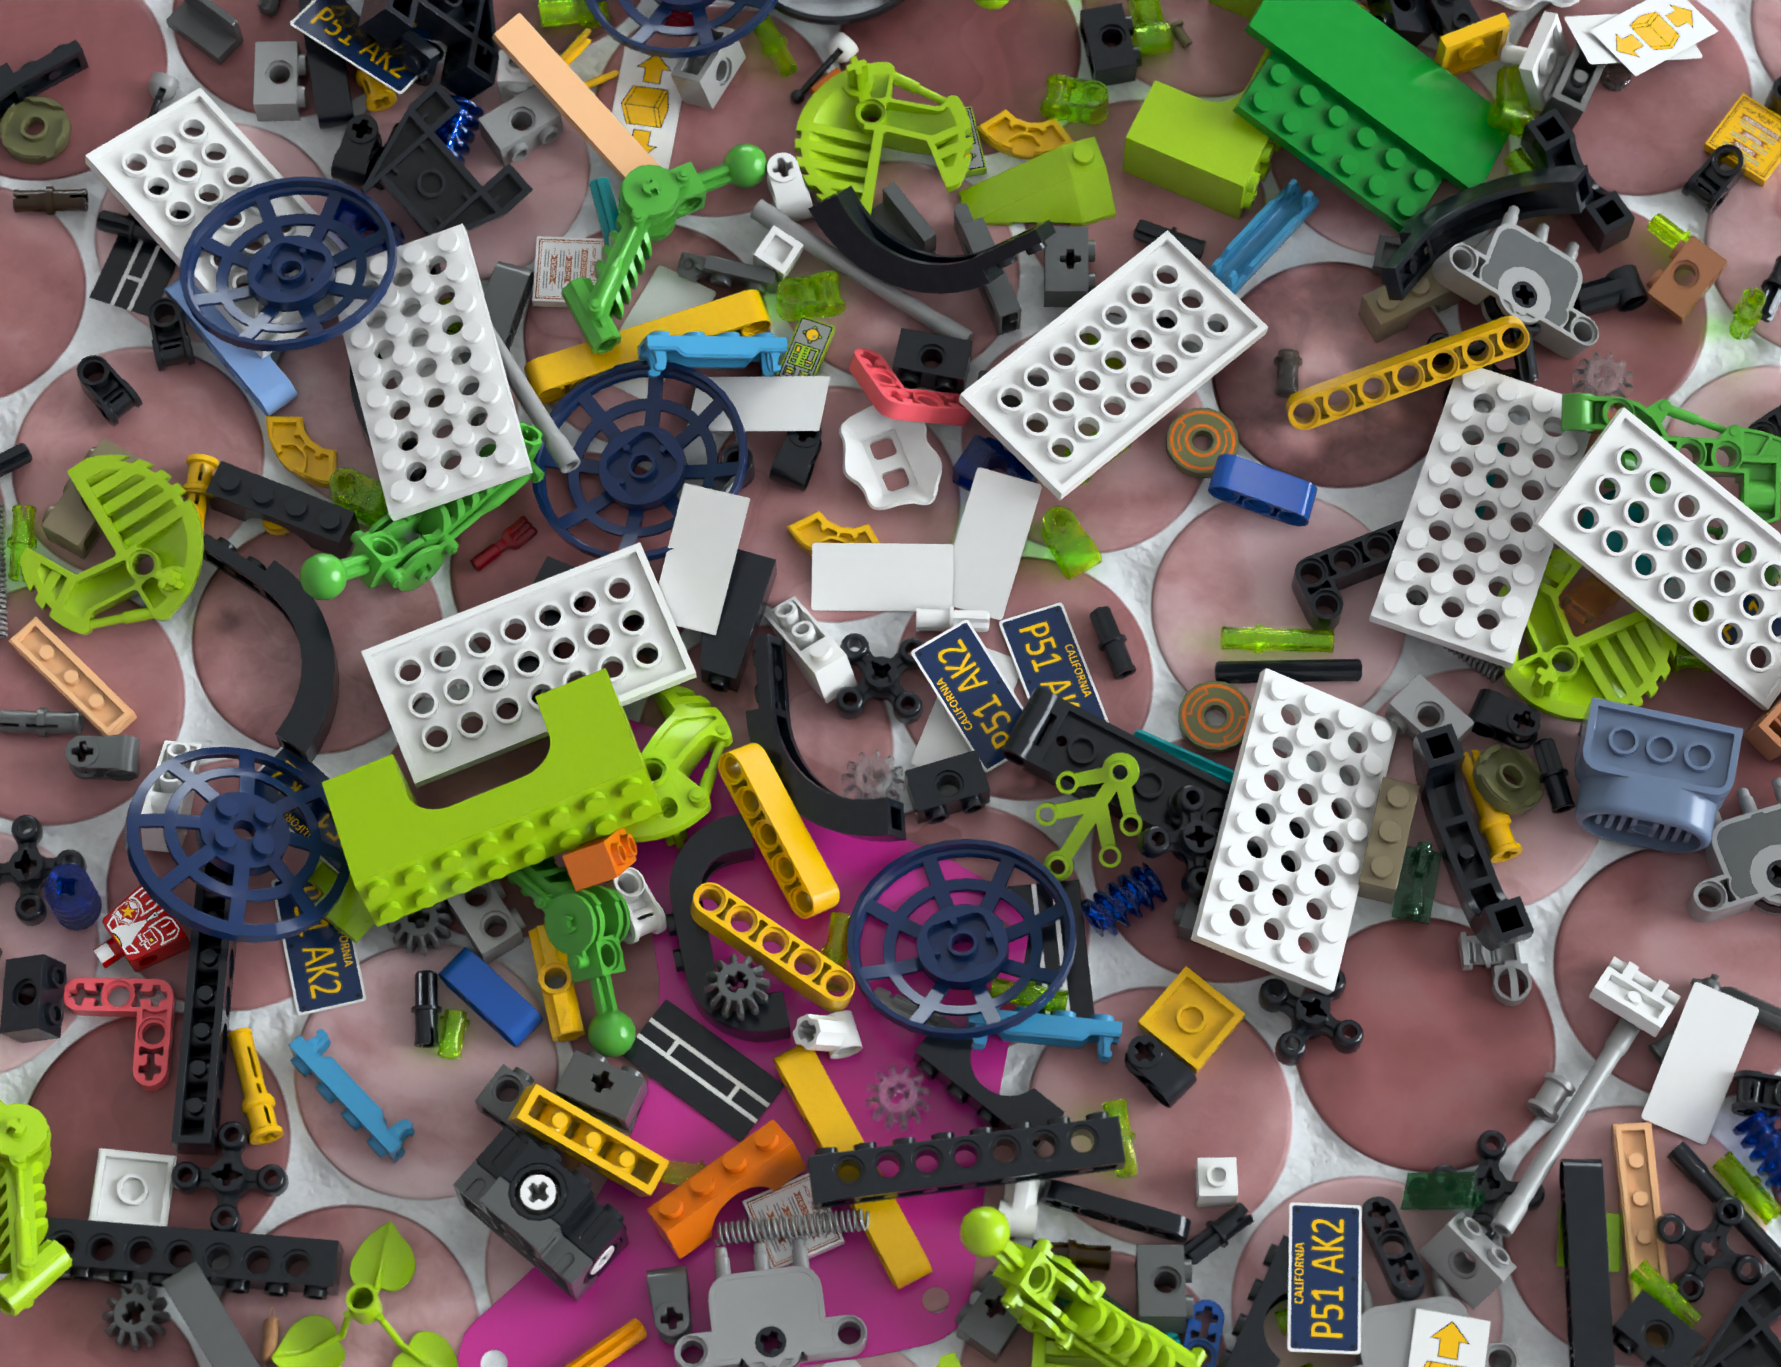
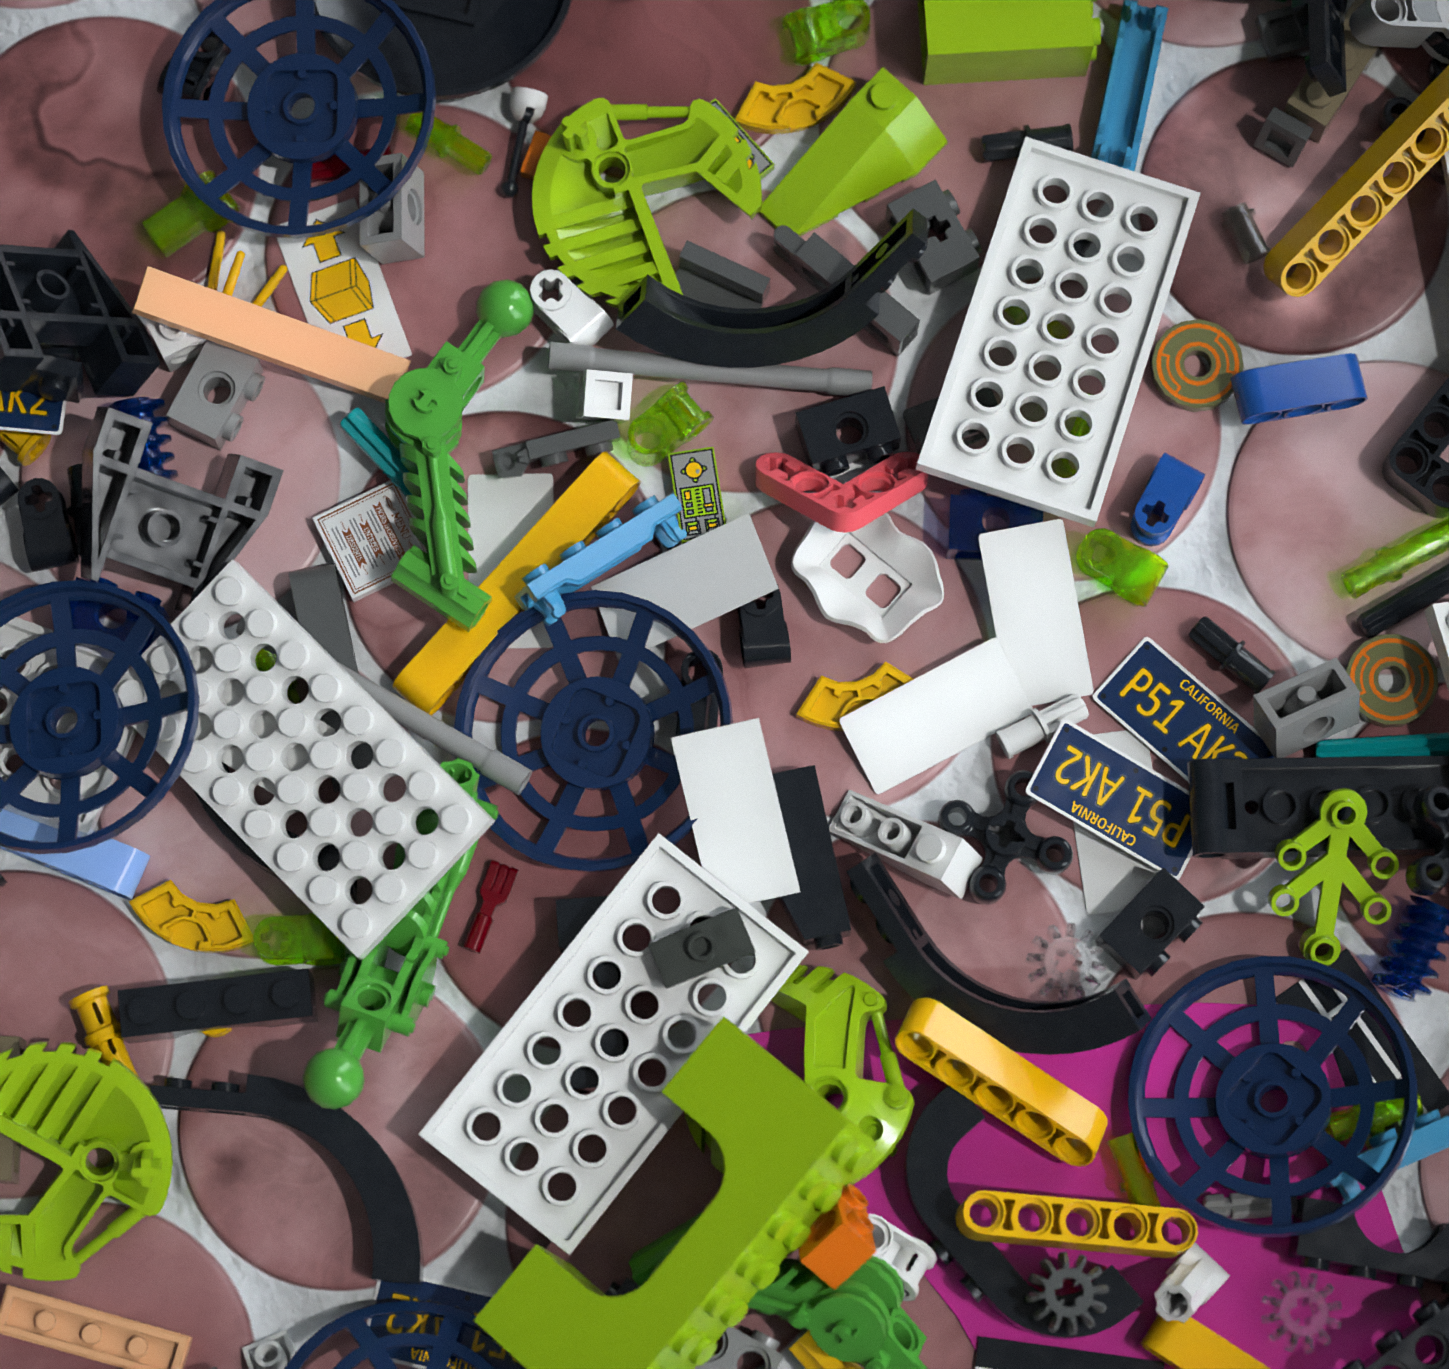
camera: 30 degrees left, 10 degrees up
(623, 629) = (701, 948): none -> pearl dark grey plate
(1128, 513) = (1166, 495): none -> blue piece
(1141, 699) = (1306, 708): none -> light grey brick
(1350, 322) = (1283, 137): none -> dark grey plate

